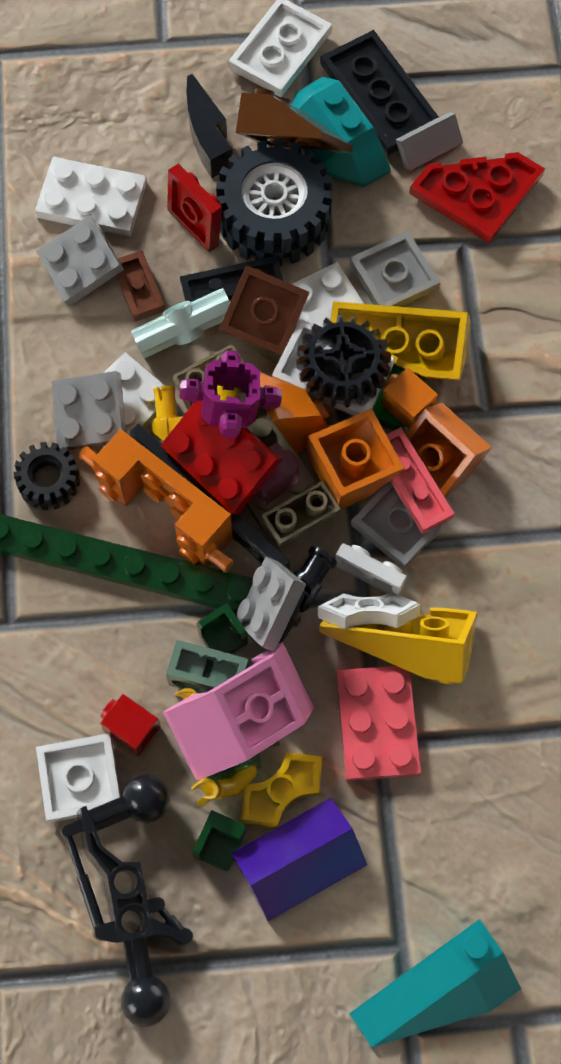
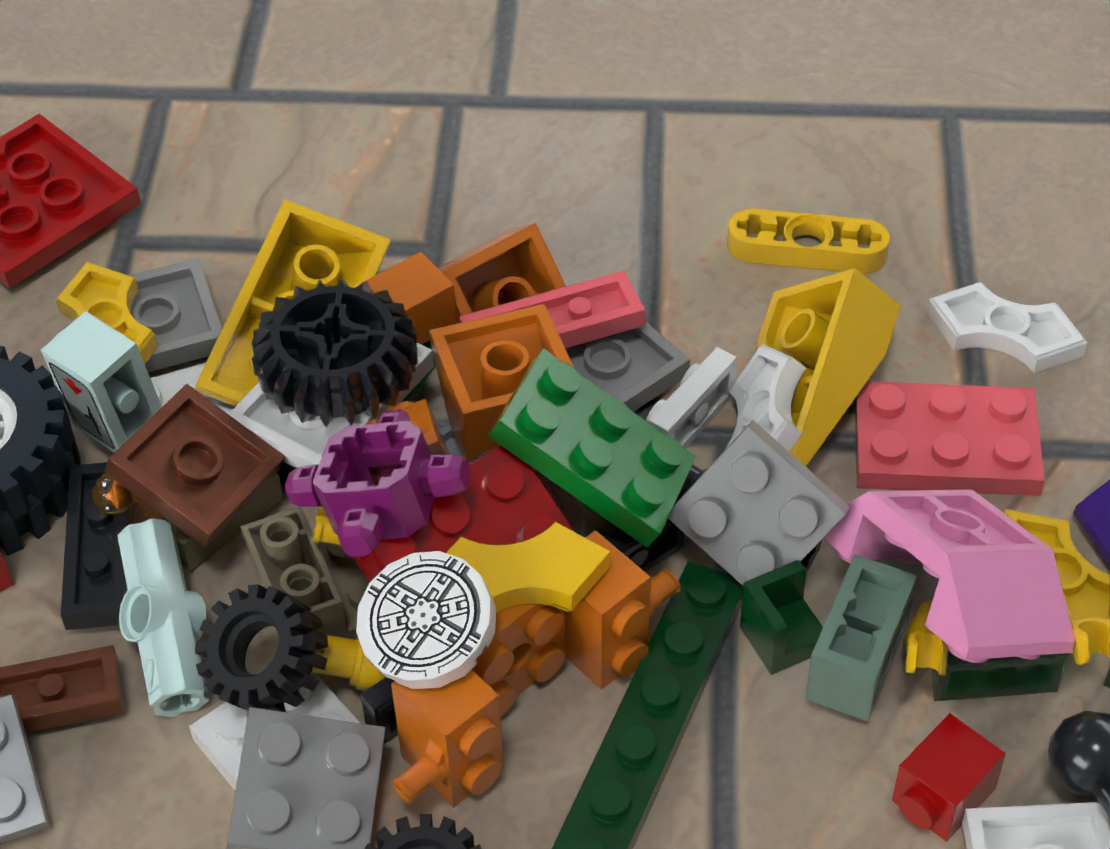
camera: 80 degrees left, 20 degrees down
(149, 434) = (426, 619): none -> white tile
(163, 364) = (234, 632): none -> black tyre
(185, 461) = (546, 570): none -> yellow tile
(291, 506) = (593, 447): none -> green plate
(308, 252) = (101, 380): none -> light aqua brick
(363, 252) = (109, 298): none -> yellow tile
(473, 775) = (1031, 333): none -> white tile
(541, 655) = (827, 228): none -> yellow beam

